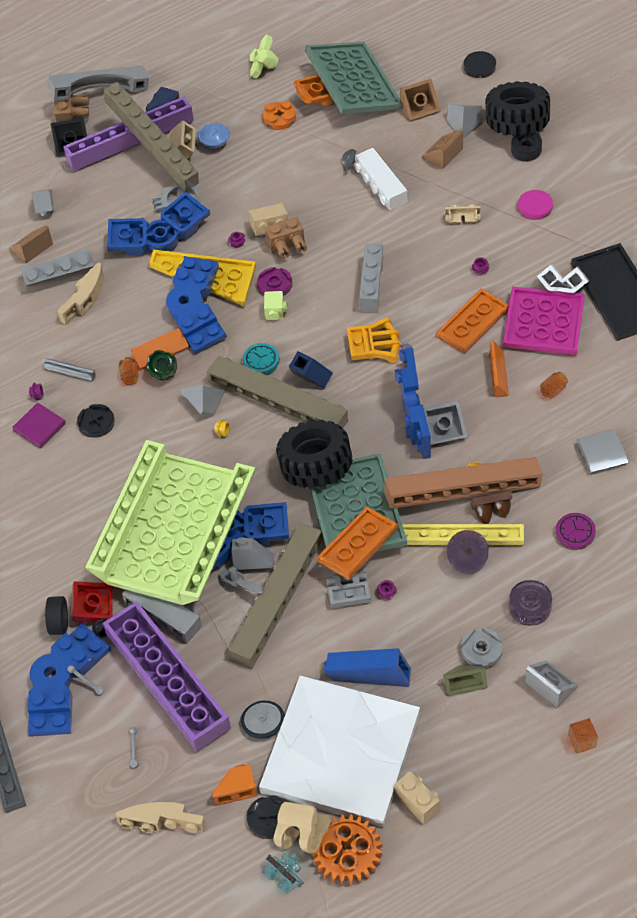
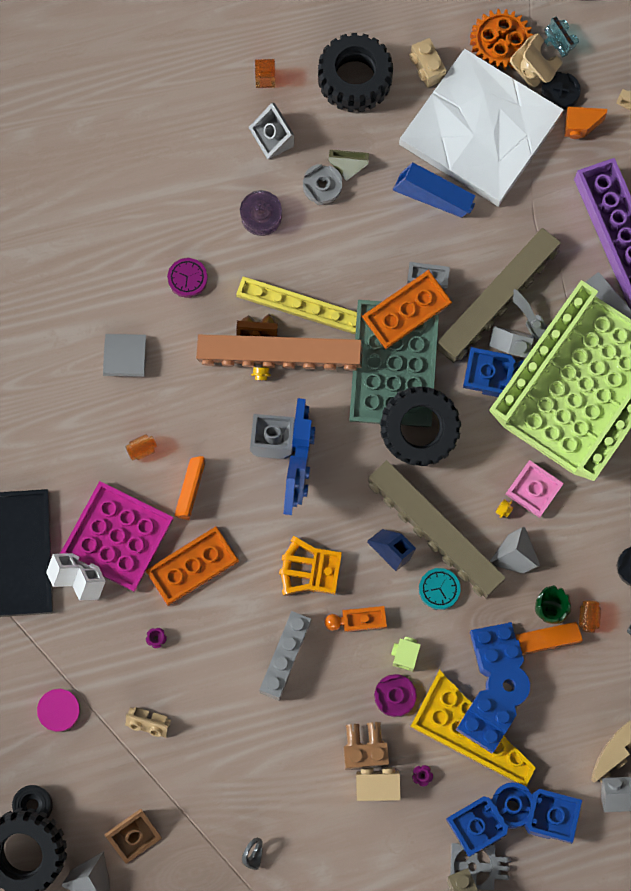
camera: 170 degrees left, 20 degrees up
(201, 446) = (534, 489): none -> bright pink plate
(262, 719) = (543, 177): light grey wheel -> none
(321, 319) = (358, 619): none -> orange plate
(381, 179) = (224, 809): white brick -> none
(386, 585) = (391, 265): magenta plate -> none
(465, 540) = (301, 277): clear purple wheel -> none
(489, 785) = (355, 49): none -> black tyre

